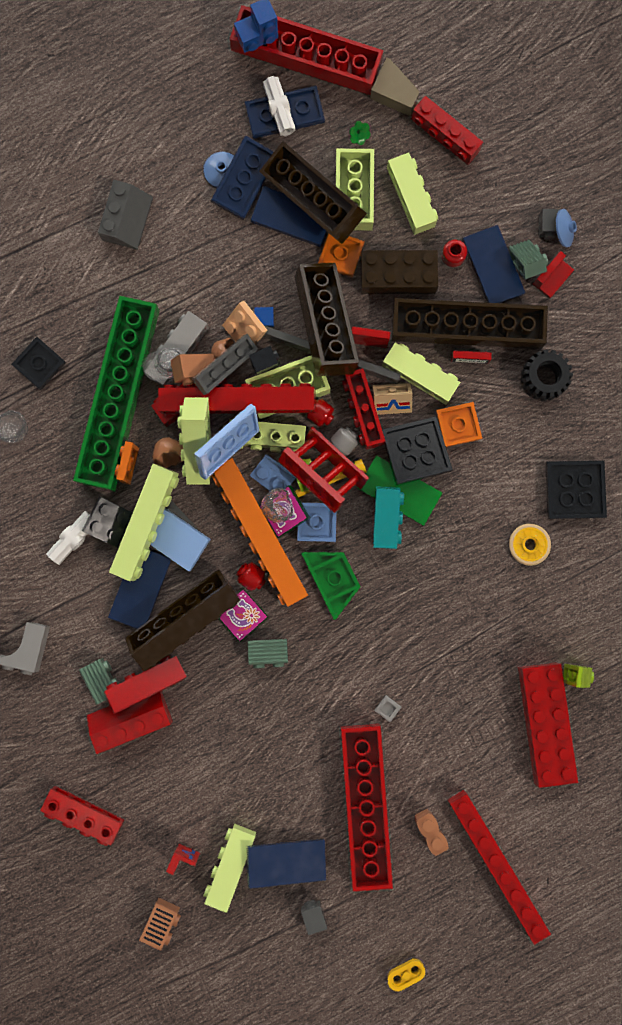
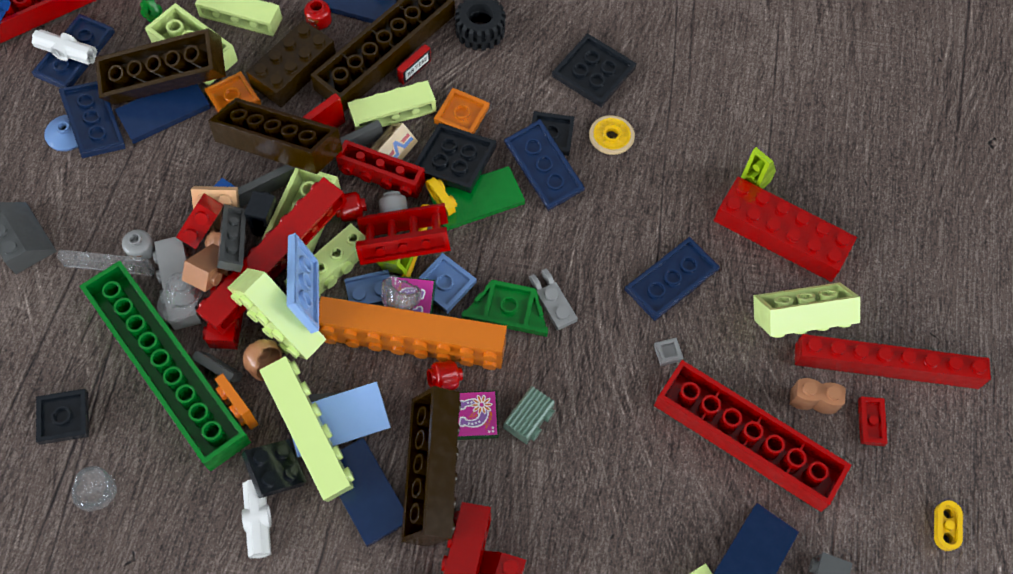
camera: 55 degrees left, 20 degrees down
(142, 428) = (217, 366): none -> dark grey tile
(152, 291) = (100, 262): none -> clear tile
(176, 306) = (138, 244): none -> light grey head
(224, 328) = (199, 221): none -> red brick
(363, 605) = (554, 301): none -> light grey hinge
(375, 476) = (437, 191): none -> yellow plate
(387, 517) = (492, 215): teal brick -> none
(443, 880) = (872, 421): none -> red plate
(446, 671) = (672, 278): none -> dark blue tile
(462, 517) = (544, 165): none -> dark blue tile
(489, 784) = (806, 309): none -> yellowish green brick
(494, 501) = (559, 127): none -> black plate

